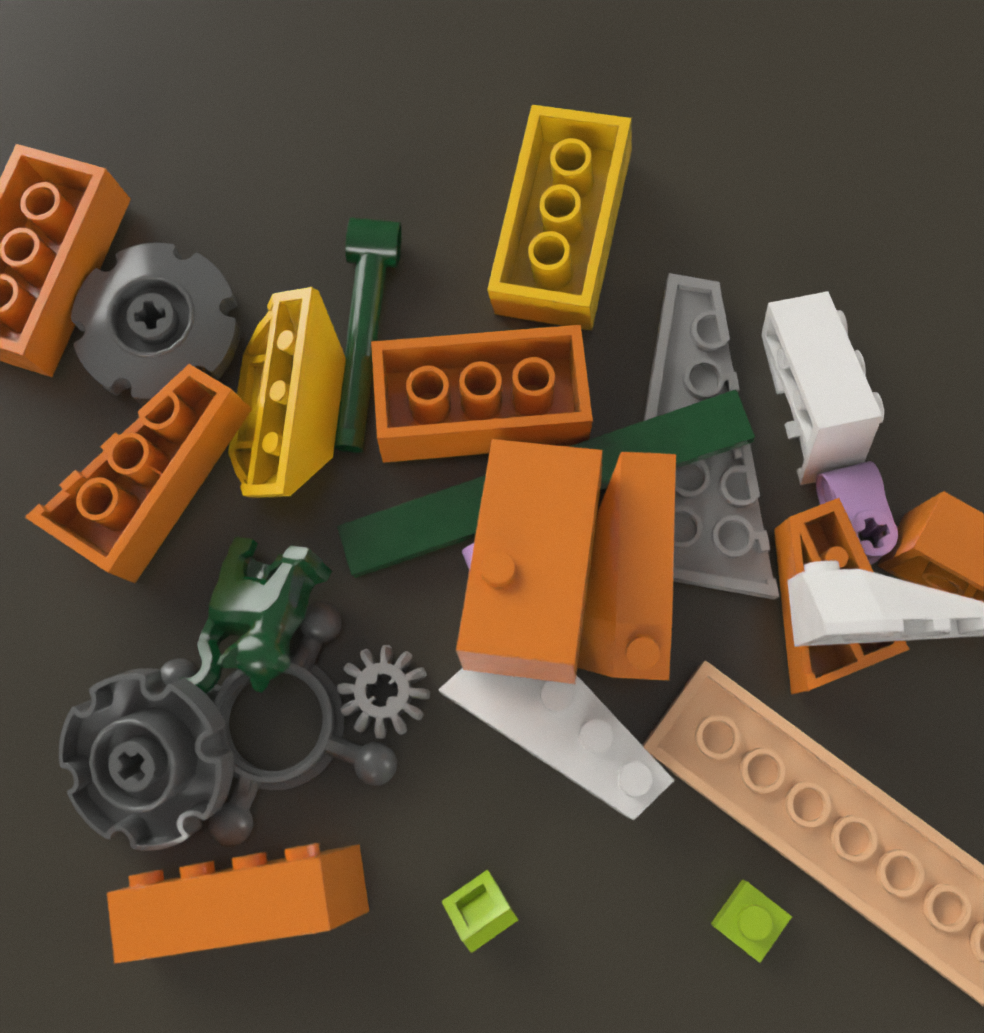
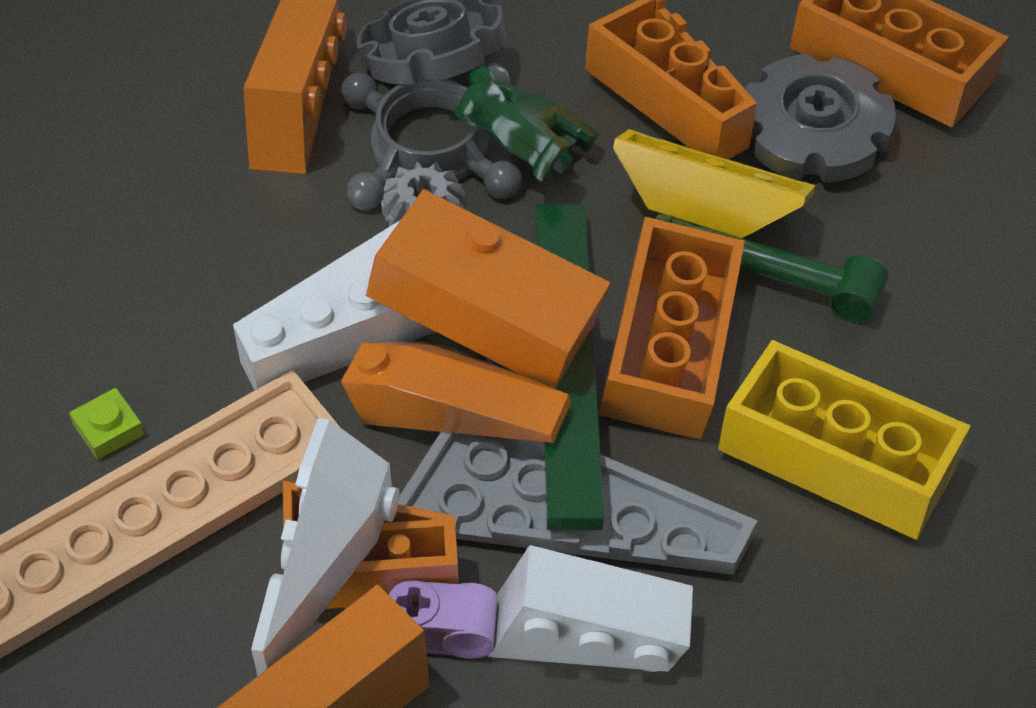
camera: 110 degrees right, 25 degrees down
(479, 911) = (212, 225): lime plate -> none

